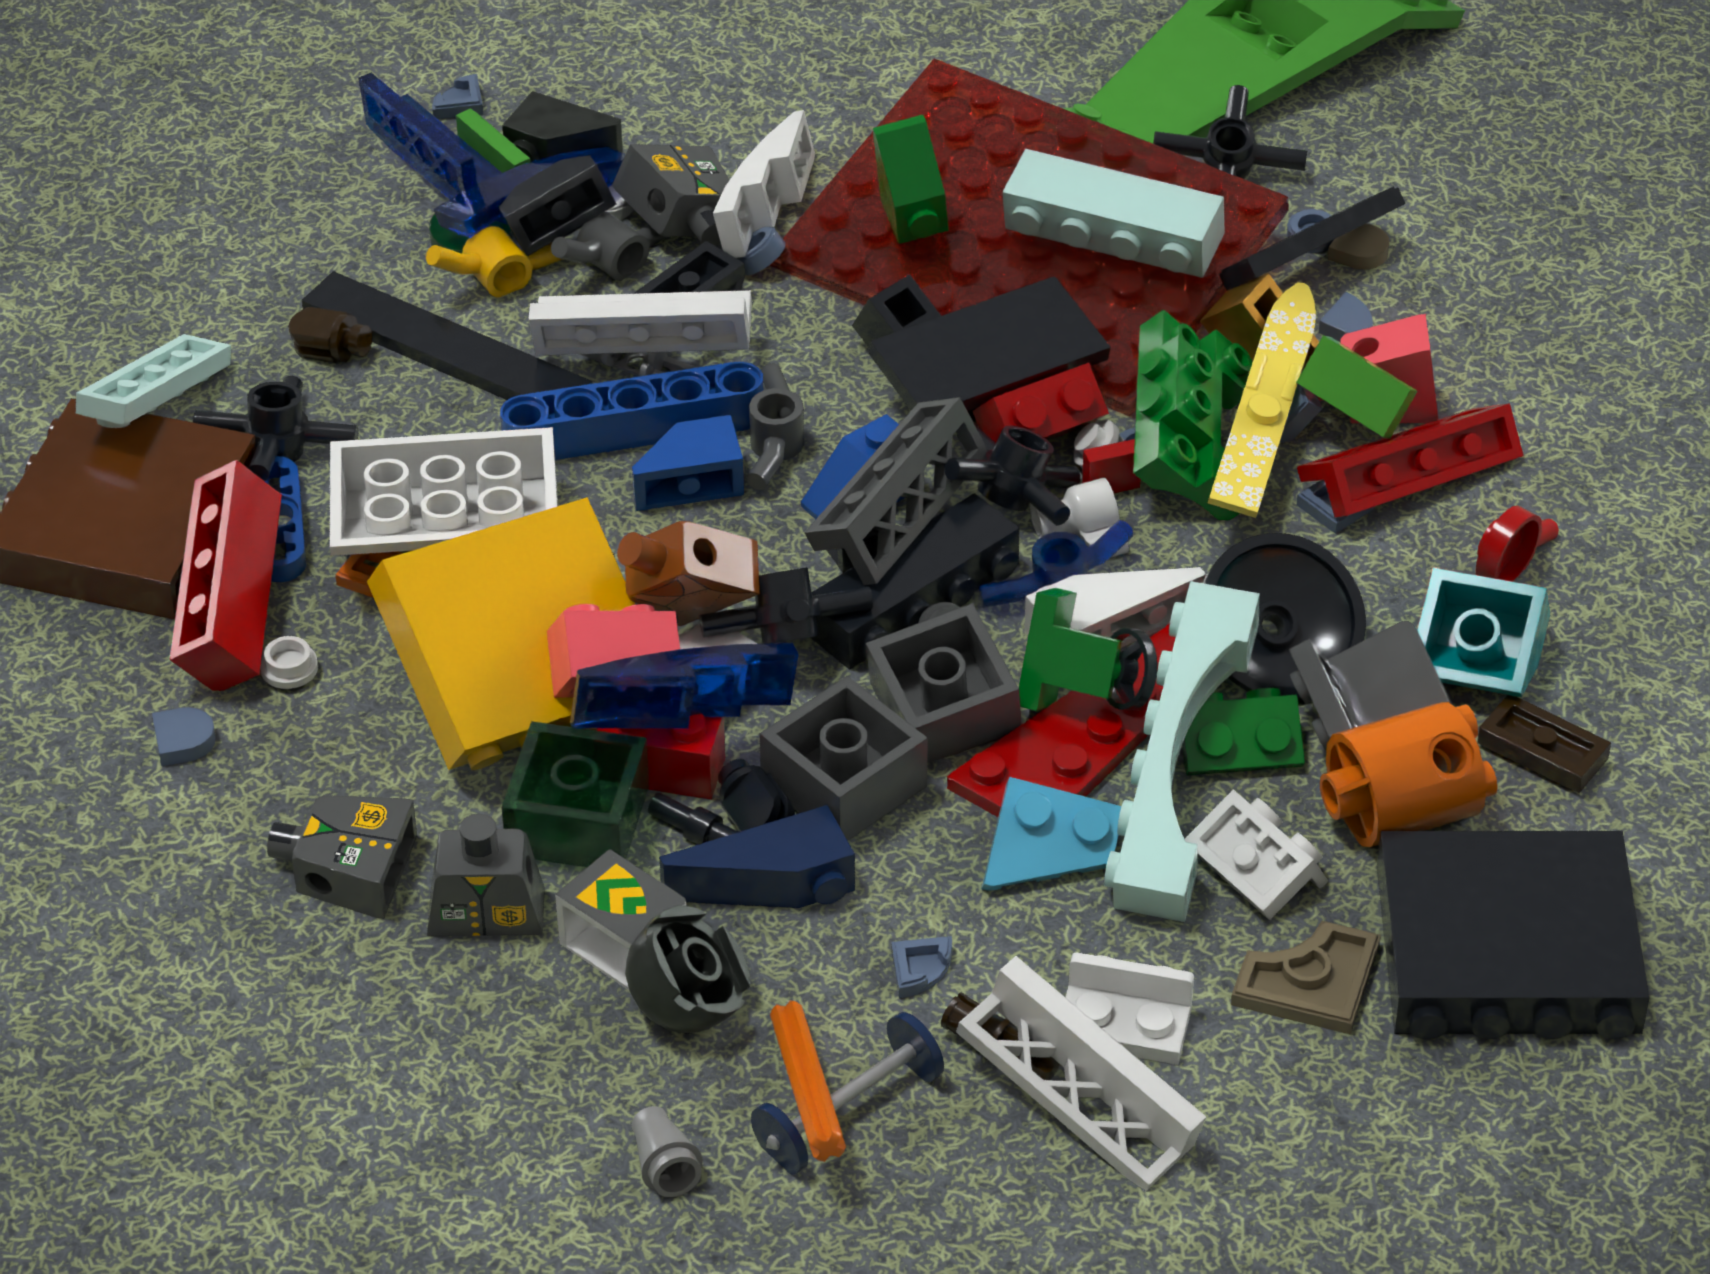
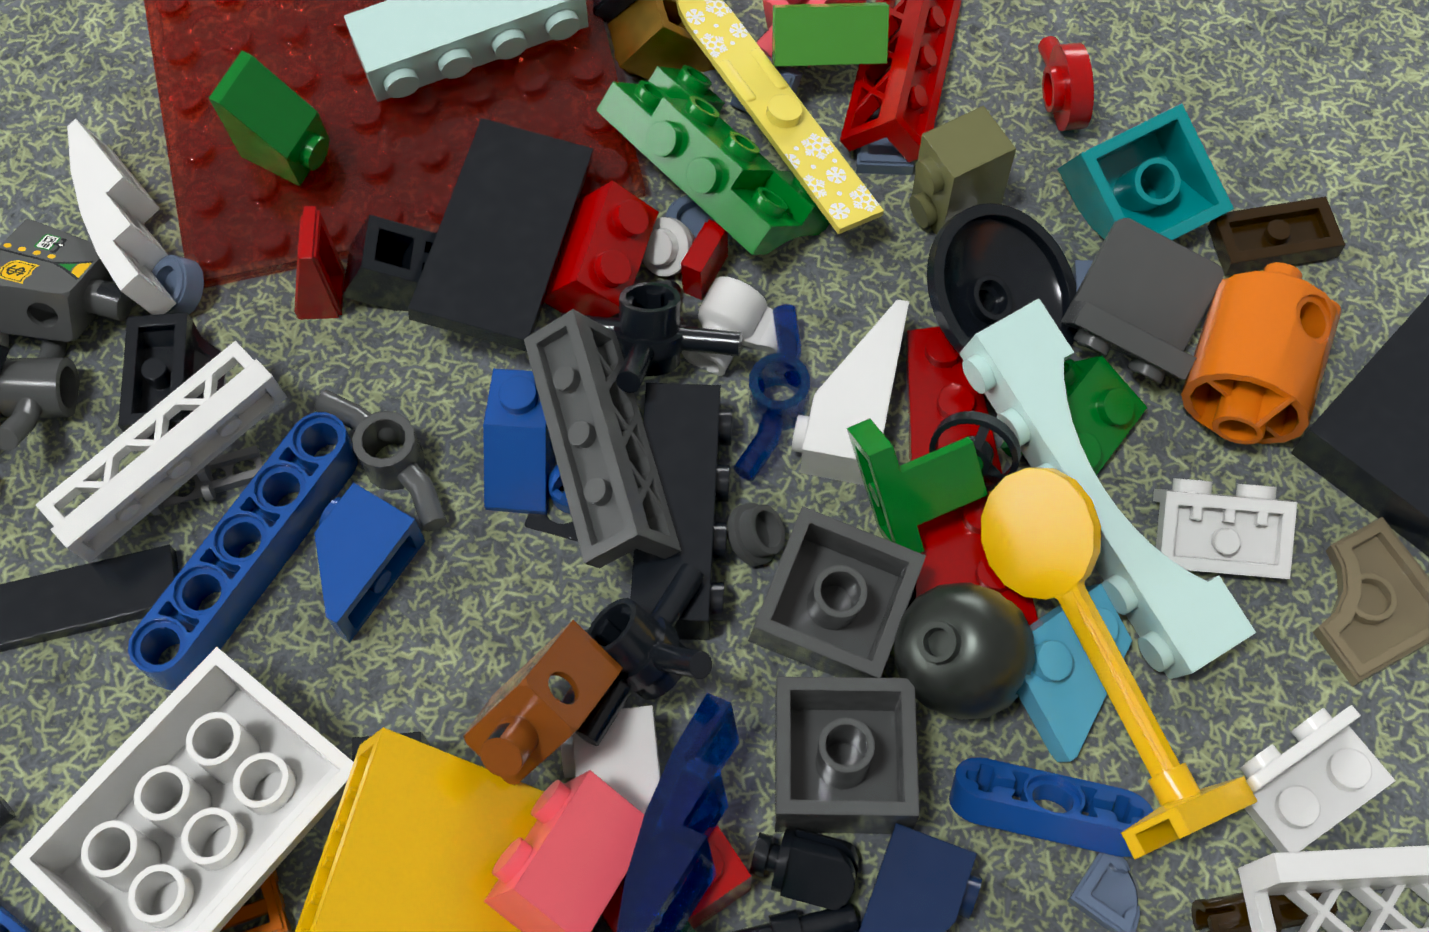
camera: 45 degrees left, 20 degrees up
(847, 289) = (319, 270): none -> red slope
(940, 891) = (1108, 807): none -> blue beam
(976, 748) = (964, 650): none -> pearl dark grey cylinder
(1006, 926) = (1044, 545): none -> yellow piece
(1347, 520) = (960, 168): none -> olive brick

